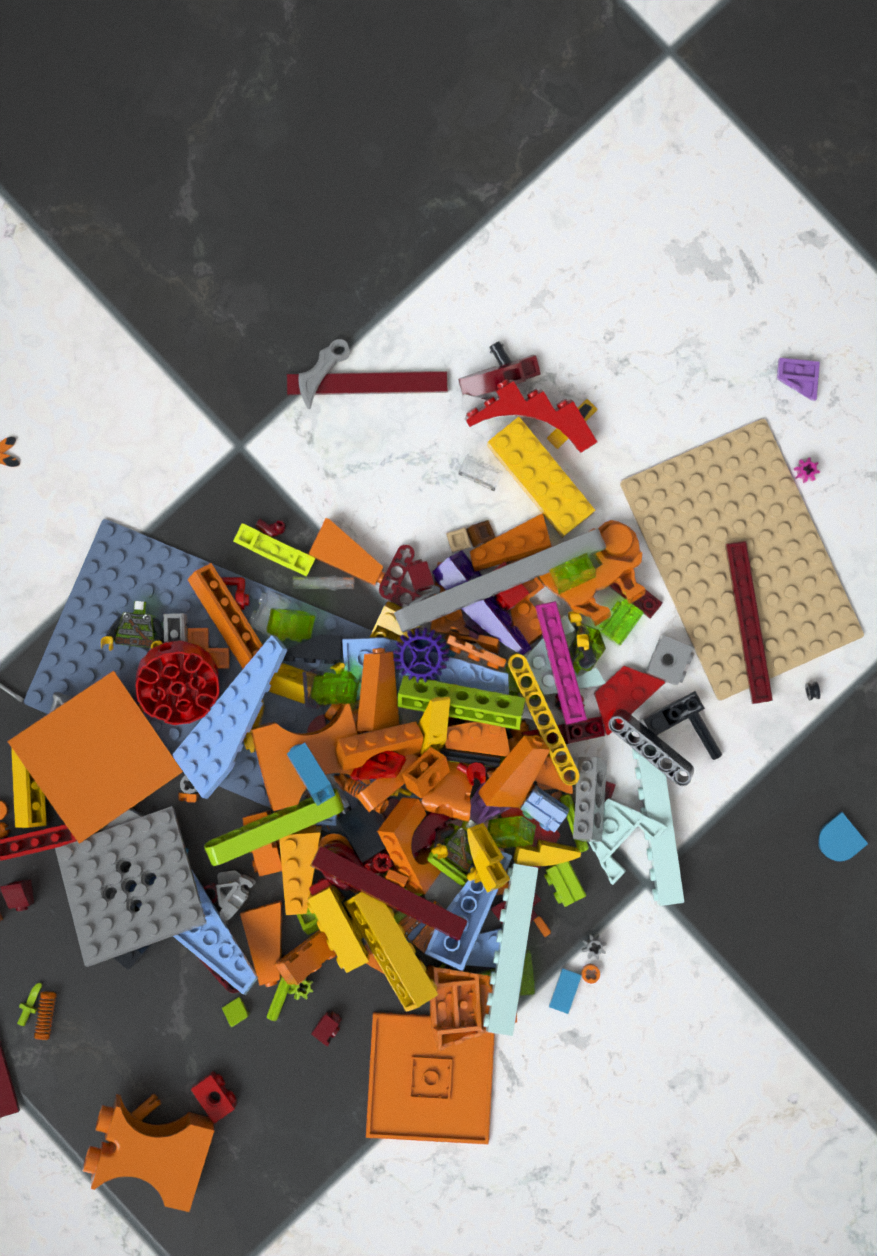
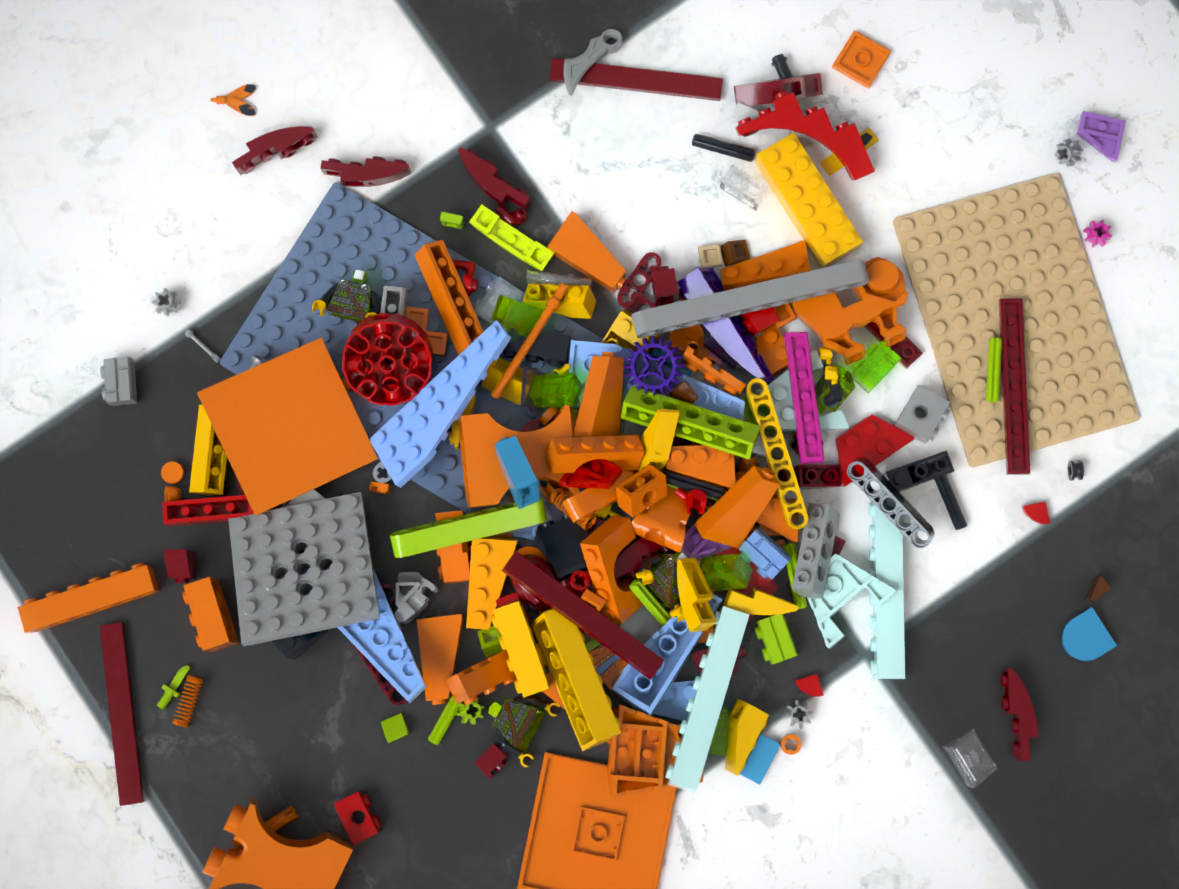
camera: 20 degrees right, 5 degrees down
(47, 489) = (280, 141): none -> dark red slope
(52, 937) = (209, 614): none -> orange brick
(138, 505) = (374, 173): none -> dark red slope
(217, 540) = (452, 220): none -> lime tile
(241, 494) = (485, 176): none -> dark red slope
(321, 608) = (551, 305): none -> orange bar
(332, 601) = (576, 302): none -> yellow slope
(345, 992) = (518, 723): none -> torso
(452, 675) = (684, 393): none -> reddish brown slope
(456, 436) = (723, 147): none -> black axle
(489, 643) = (729, 365): orange tile -> none
(542, 926) = (744, 683): orange tile -> none
(547, 967) = (743, 730): none -> yellow slope
(571, 335) = (861, 59): none -> orange tile
(572, 573) = (829, 302): clear neon green brick -> none
(601, 919) = (810, 686): none -> red tile
(728, 610) = (994, 370): none -> lime axle
(751, 963) = (970, 758): none -> clear slope
(771, 398) = (1068, 152): none -> light grey gear
(783, 733) = (1037, 513): none -> red tile
(787, 909) = (1017, 702): none -> dark red slope
(844, 796) = (1097, 589): none -> reddish brown slope

